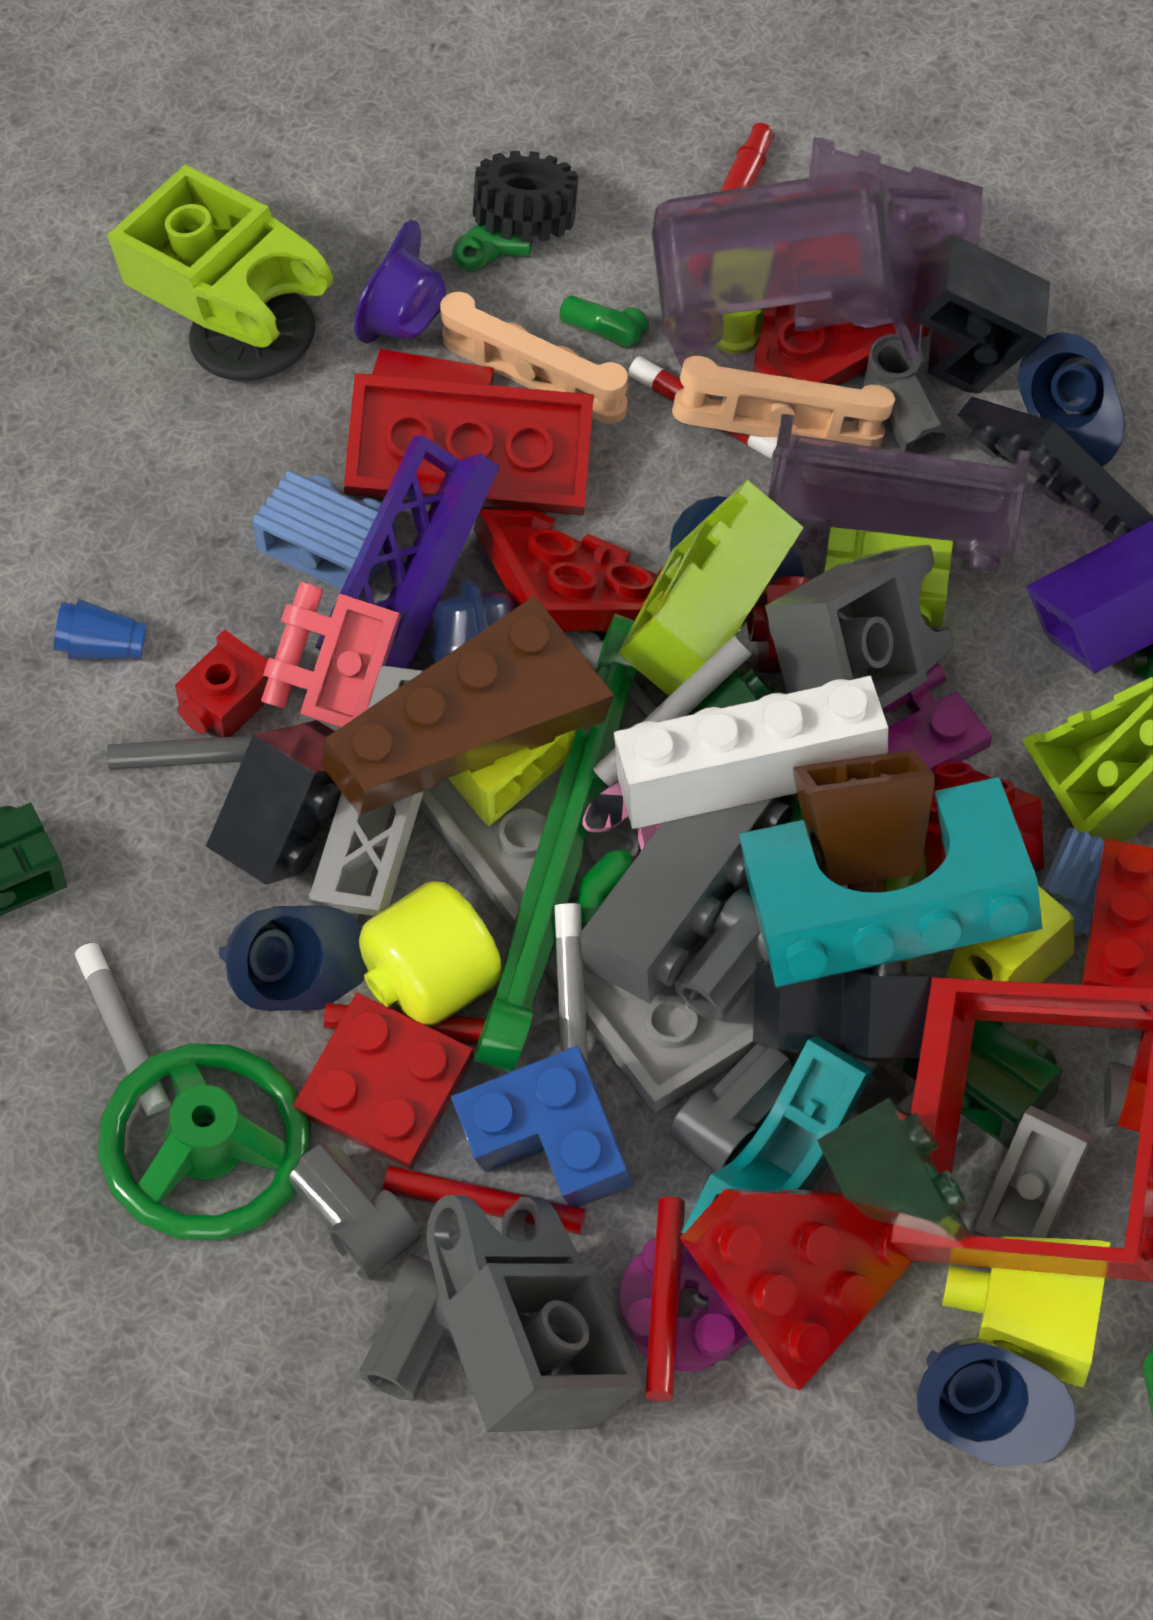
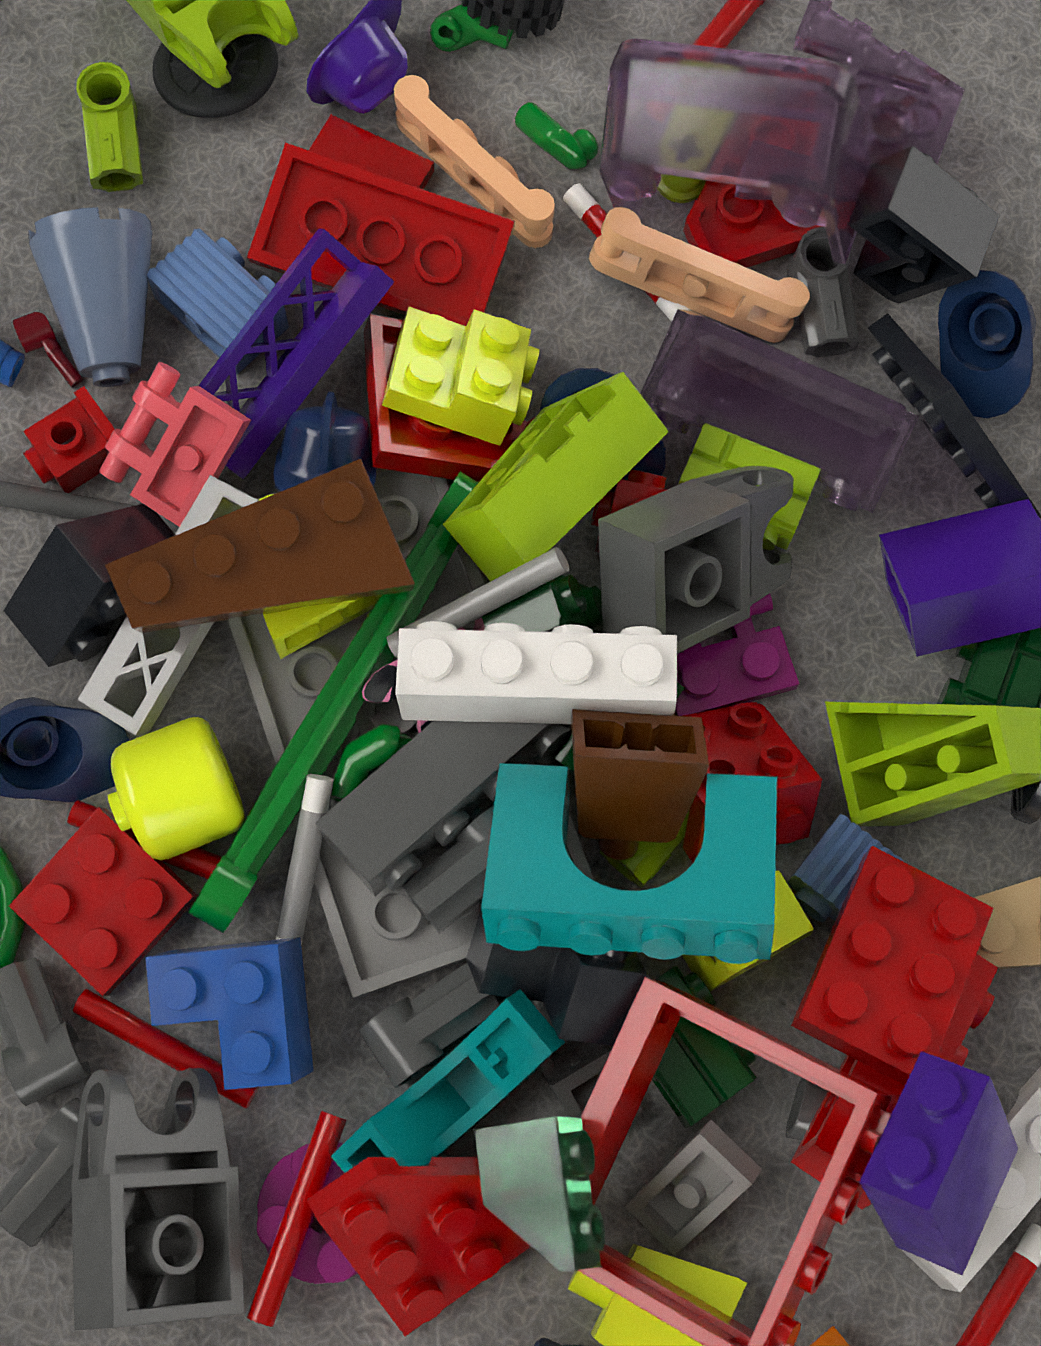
camera: 10 degrees right, 15 degrees up
(154, 602) = (36, 332): none -> dark red hand
(170, 406) = (110, 128): none -> lime piece
(206, 542) = (97, 287): none -> sand blue cone
(589, 540) = (462, 373): none -> neon yellow plate

